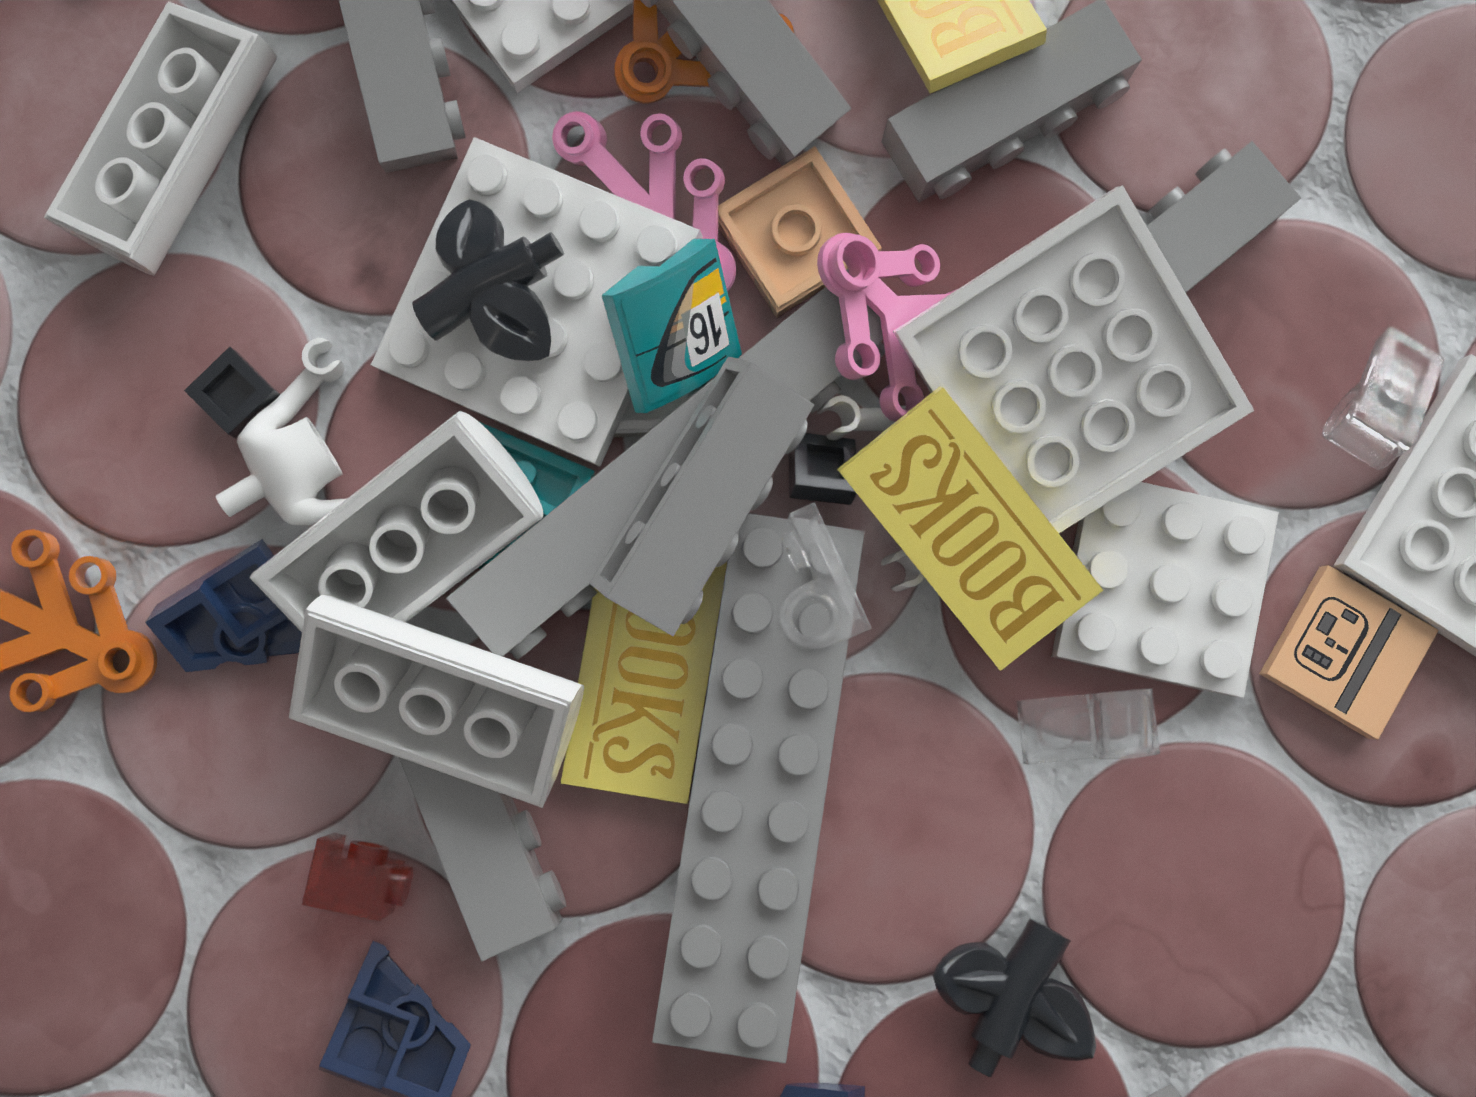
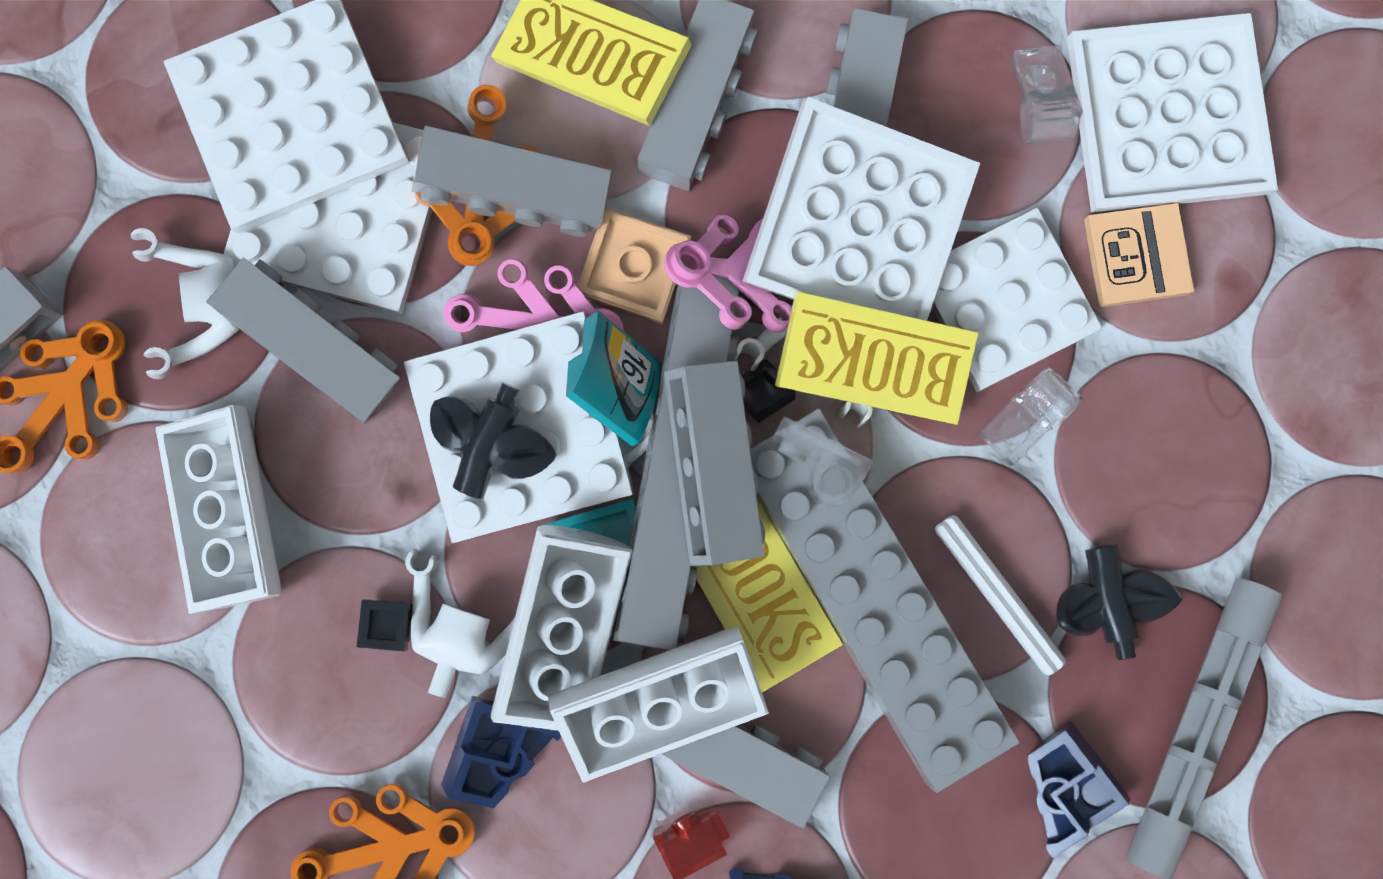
camera: 40 degrees left, 0 degrees up
(898, 891) = (1000, 595): none -> white axle

